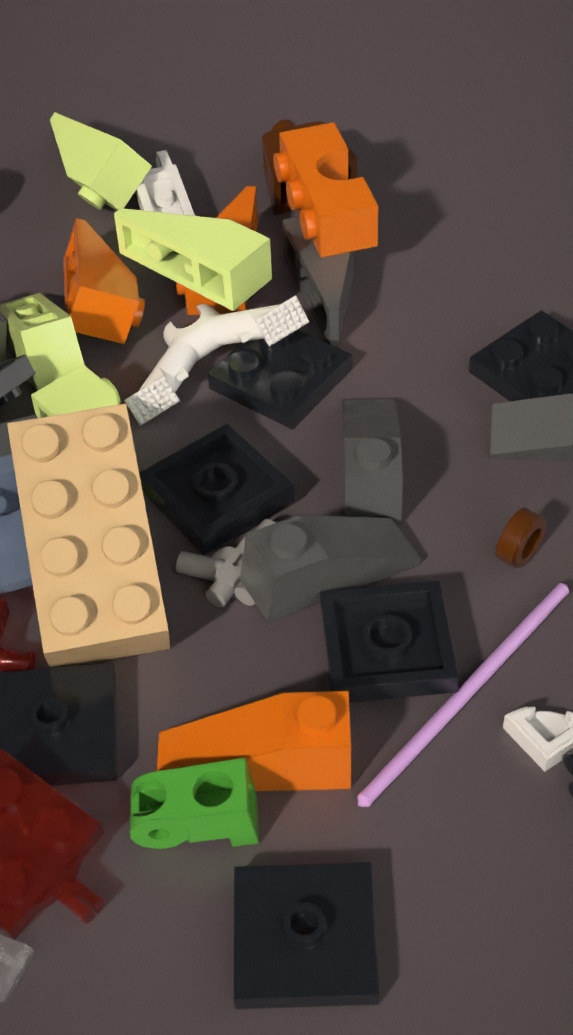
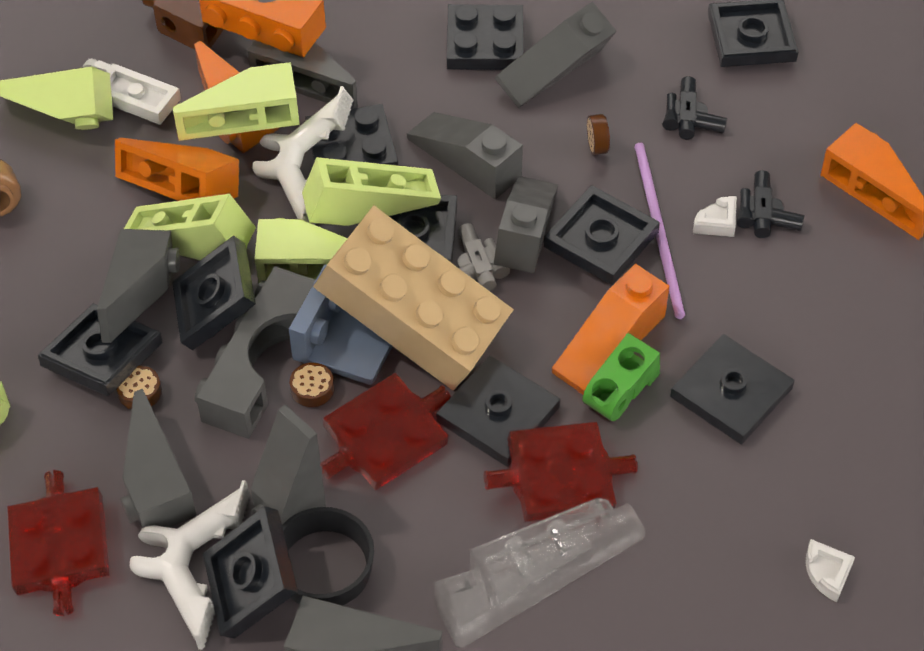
camera: 50 degrees left, 5 degrees up
(200, 409) = (346, 190): none -> yellowish green slope

